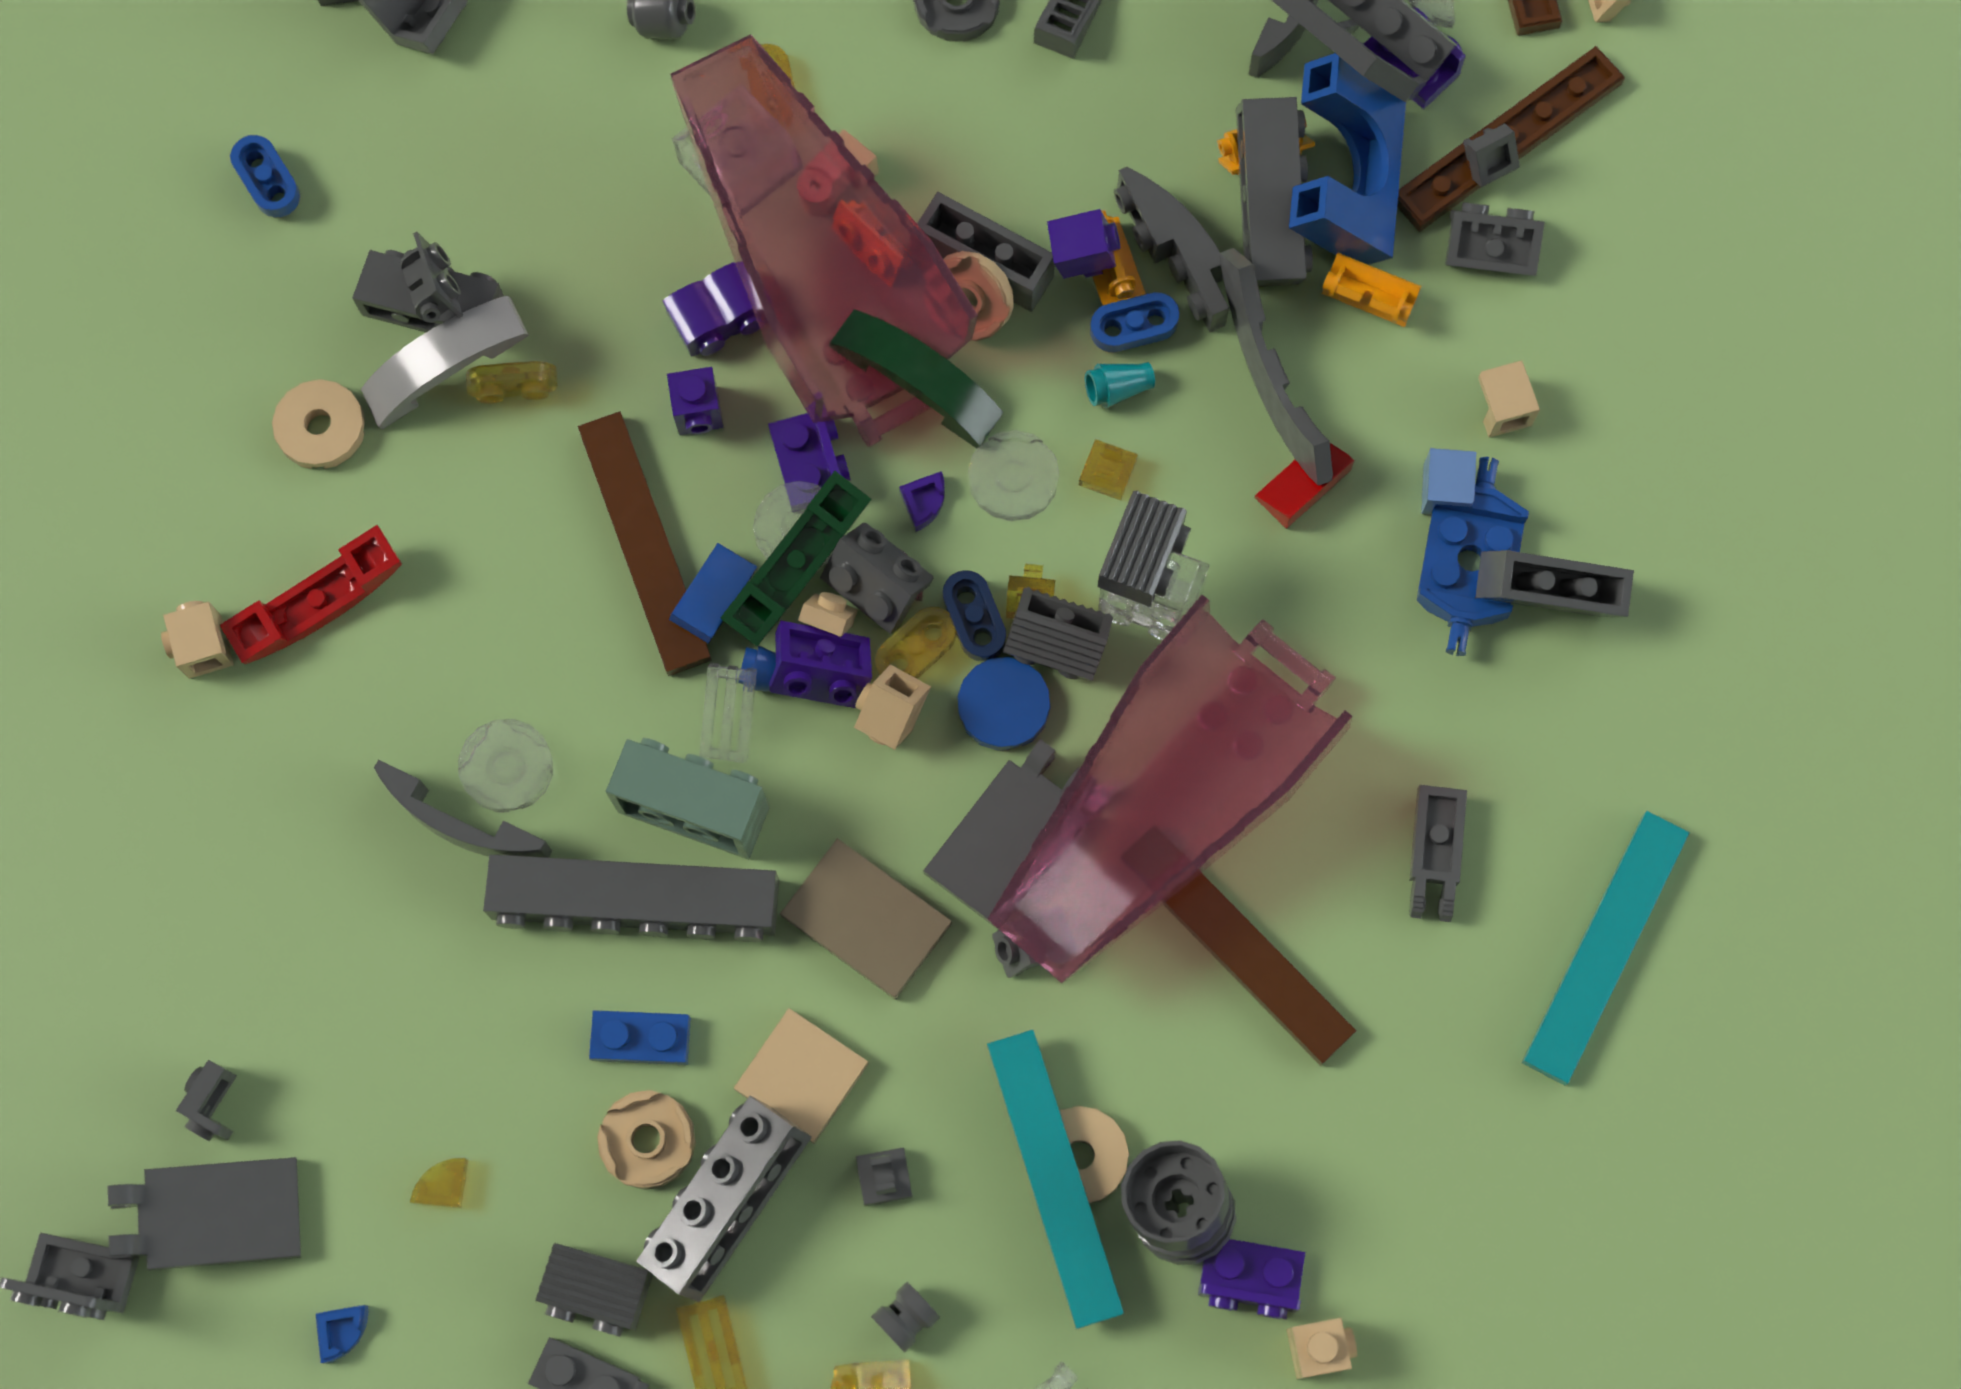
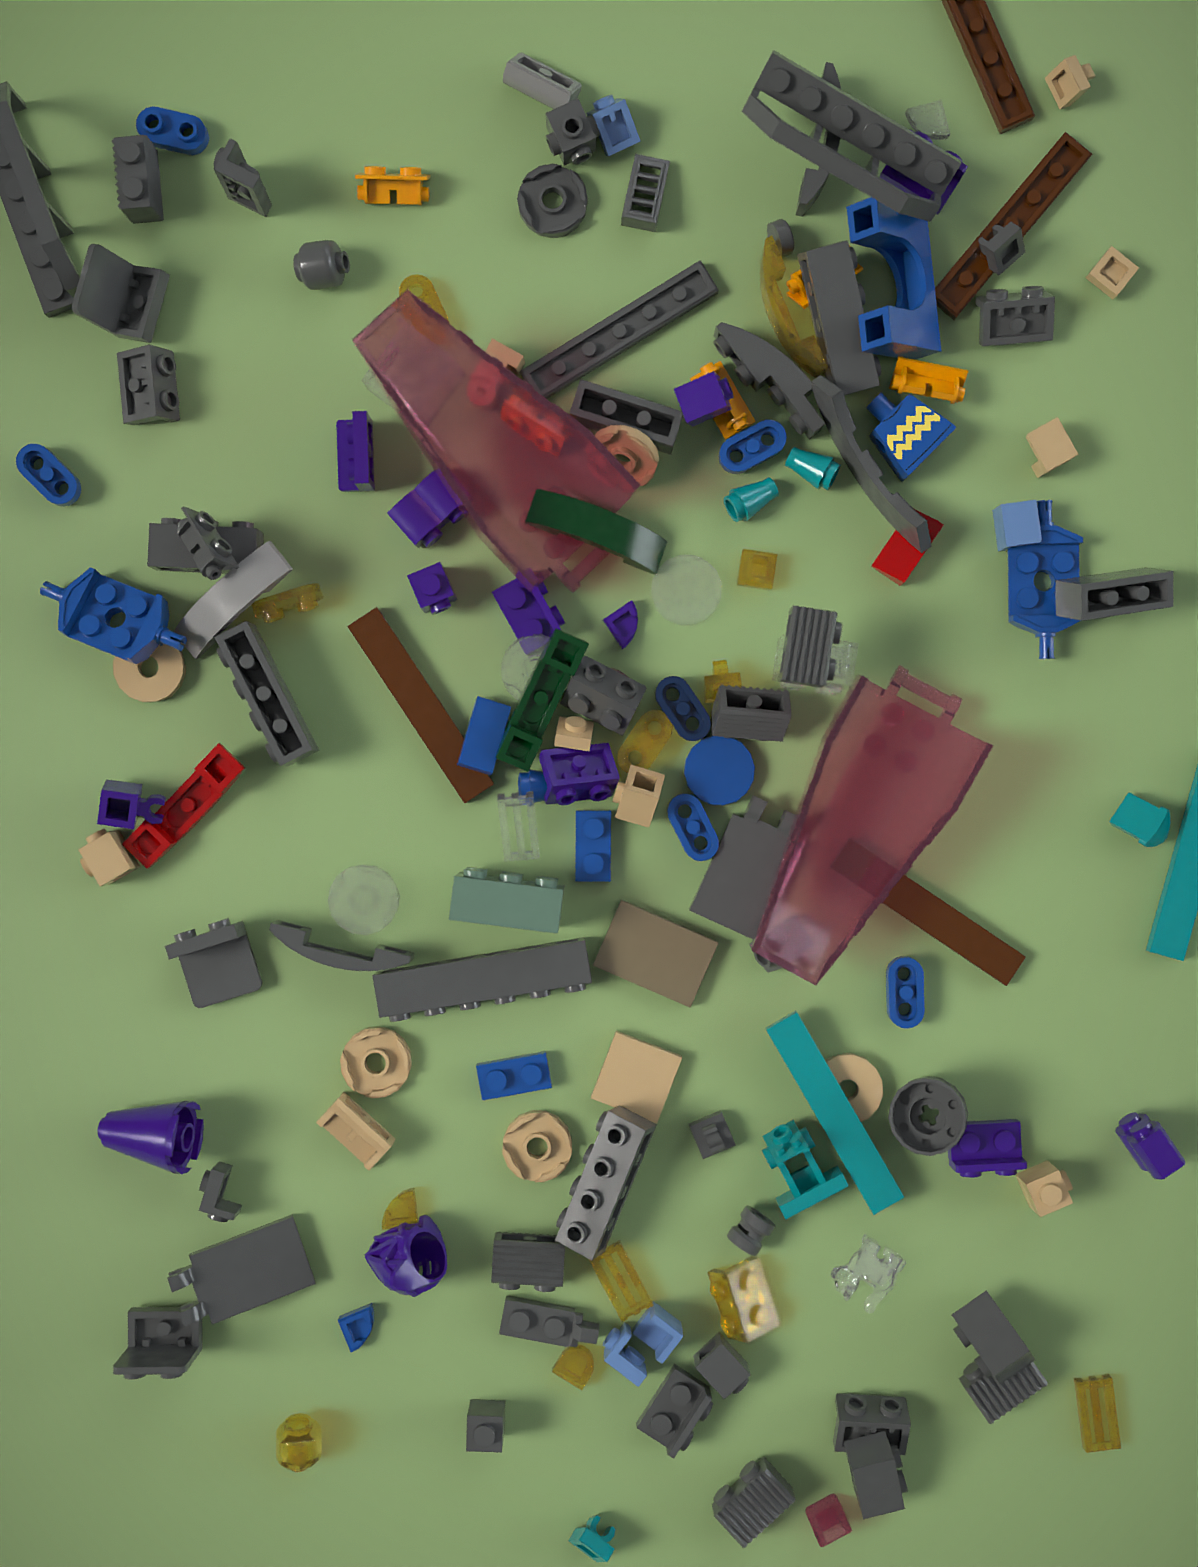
camera: 20 degrees left, 15 degrees up
(152, 1000) = (155, 1134): none -> dark purple cone
(239, 576) = (123, 804): none -> dark purple brick
(272, 331) = (93, 600): none -> blue plate
(294, 798) = (217, 962): none -> dark grey bracket
(410, 1061) = (356, 1130): none -> tan hinge
(415, 100) = (148, 385): none -> dark grey bracket
(433, 1239) = (400, 1253): none -> dark purple piece
(454, 482) = (266, 693): none -> dark grey brick
(479, 1002) = (361, 1077): none -> tan tile
(644, 227) = (355, 453): none -> dark purple bracket
(818, 763) = (593, 846): none -> blue plate
(952, 767) = (693, 826): none -> blue plate
(977, 1206) = (806, 1184): none -> teal tile
(1009, 156) = (620, 330): none -> dark grey tile
(1185, 1041) = (905, 991): none -> blue plate
(1209, 364) = (813, 467): none -> teal cone
(1220, 222) = (805, 351): none -> clear yellow slope
(1222, 92) = (782, 236): none -> dark grey tile
(1332, 345) = (907, 432): none -> blue torso
(1437, 847) = (1059, 810): dark grey hinge -> none
(1472, 1313) = (1149, 1145): none -> dark purple brick
(1545, 886) = (1142, 820): none -> teal tile
(1624, 214) = (1112, 272): none -> tan plate

